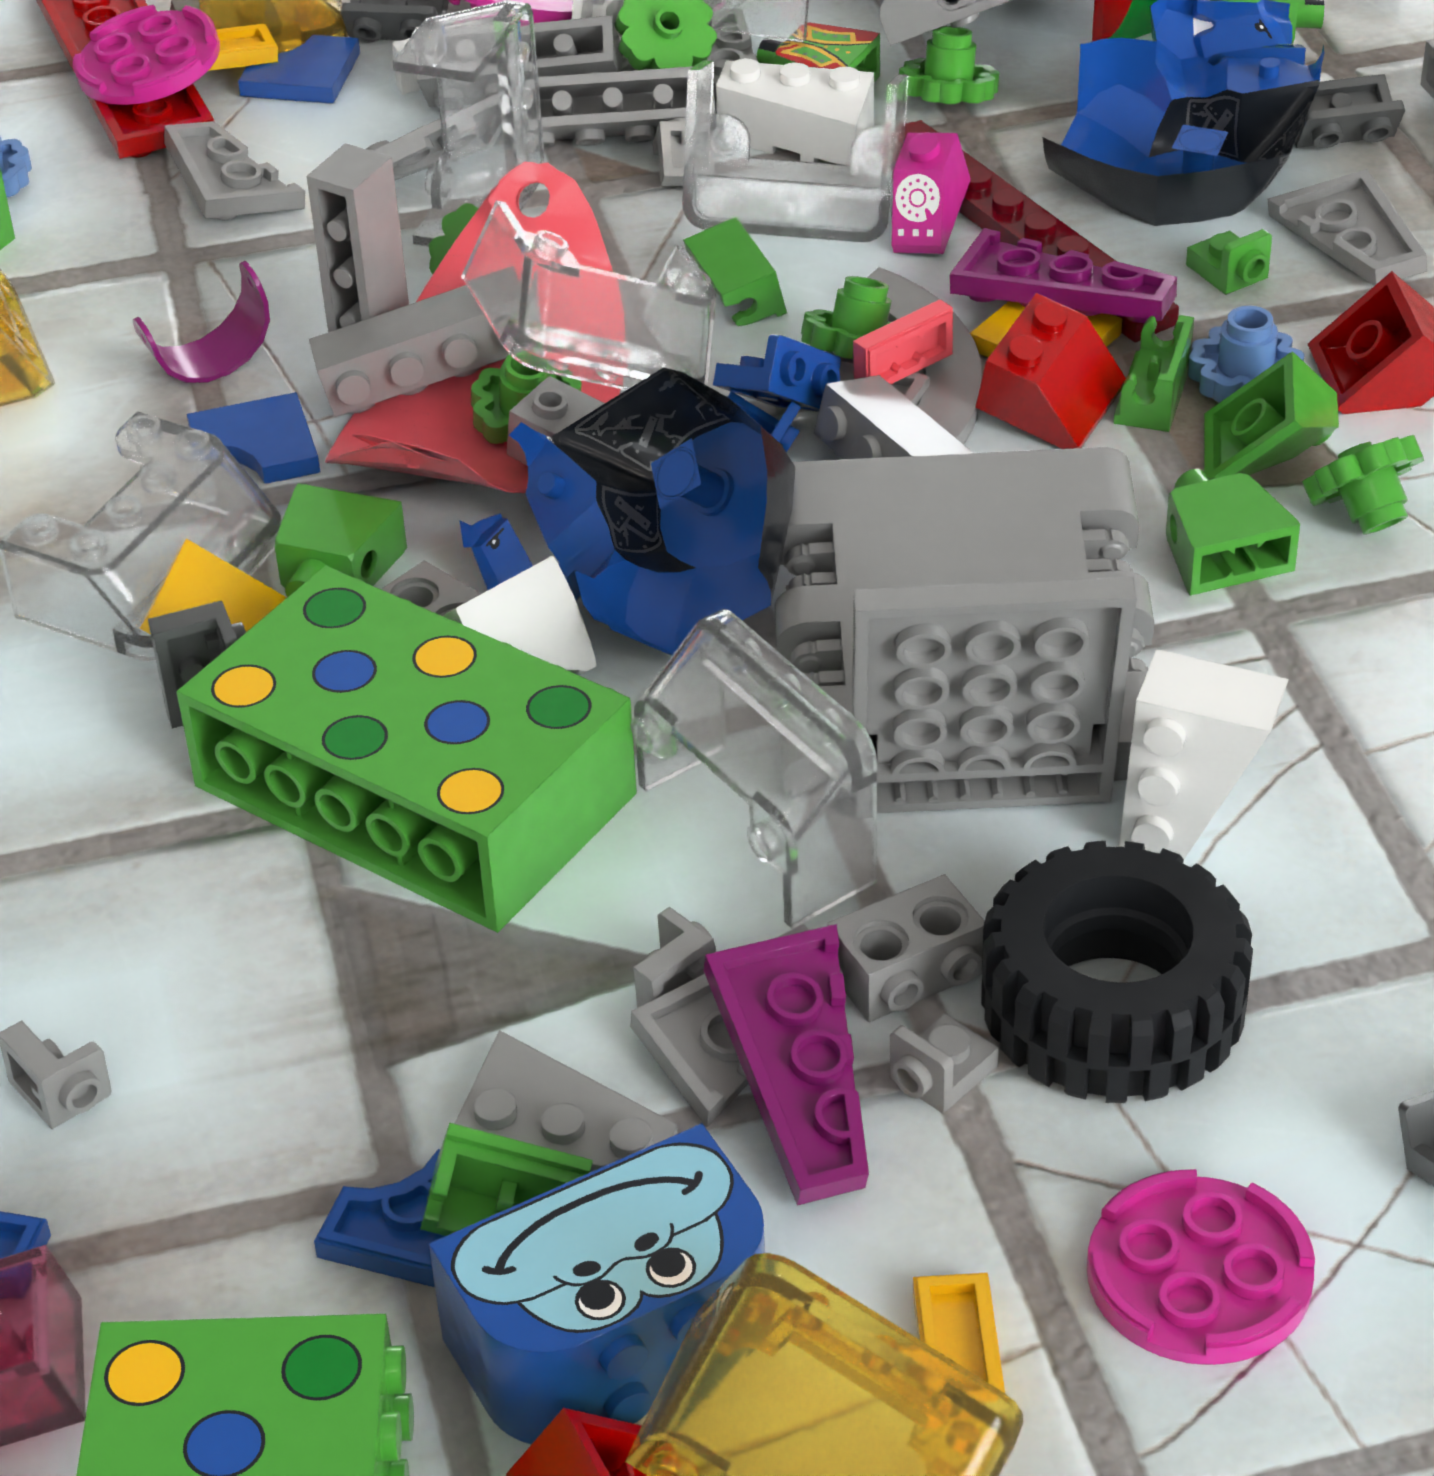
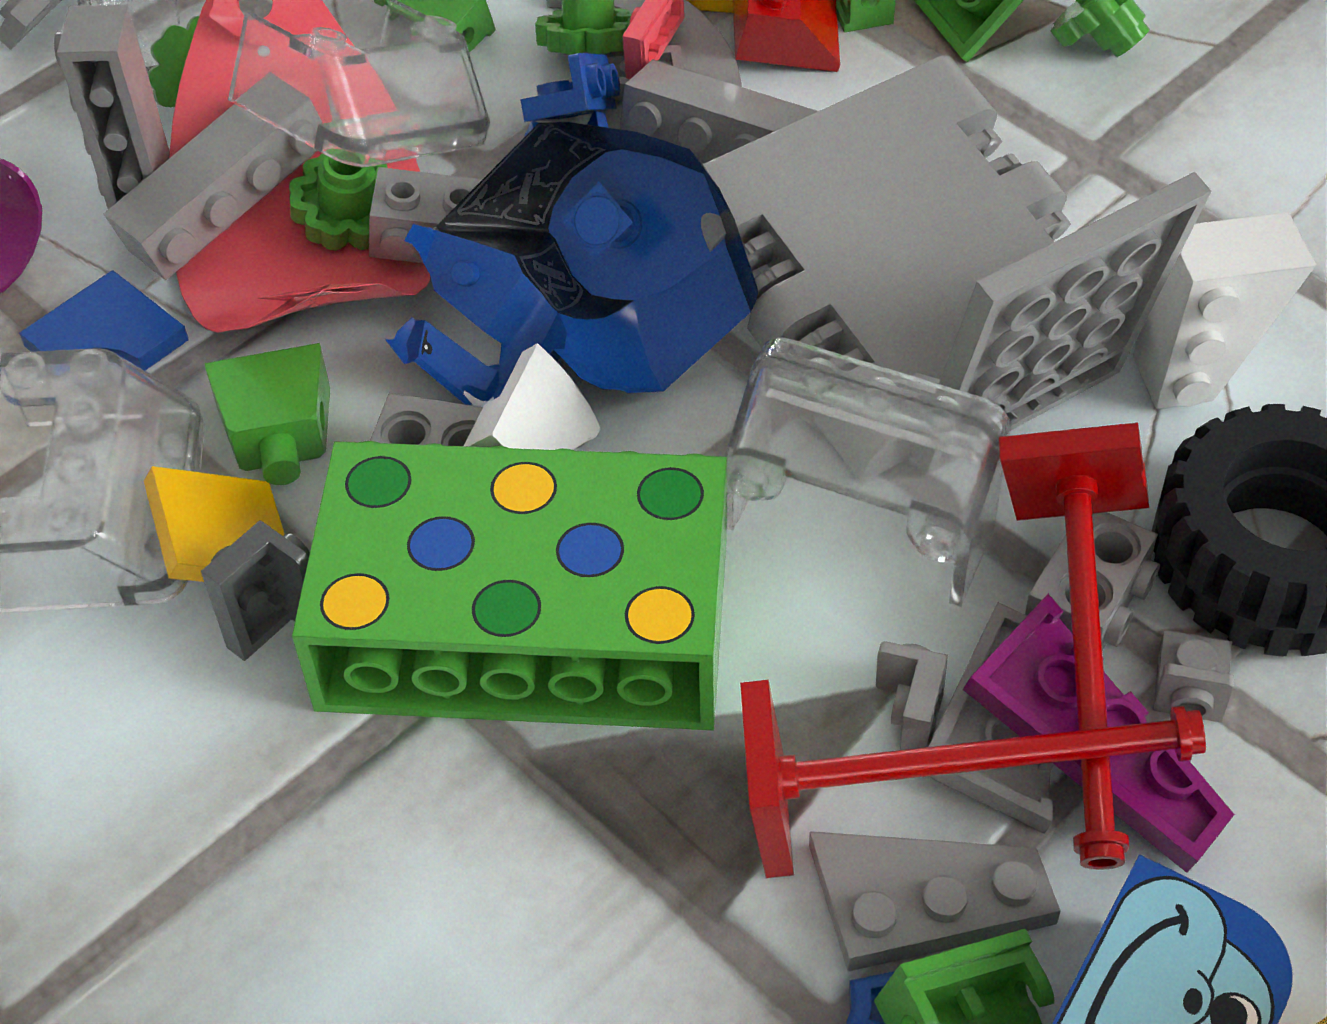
camera: 30 degrees left, 10 degrees up
(487, 961) = (778, 777): none -> red tile
(912, 829) = (1074, 477): none -> red tile
(1228, 531) = (1030, 90): bright green torso -> none

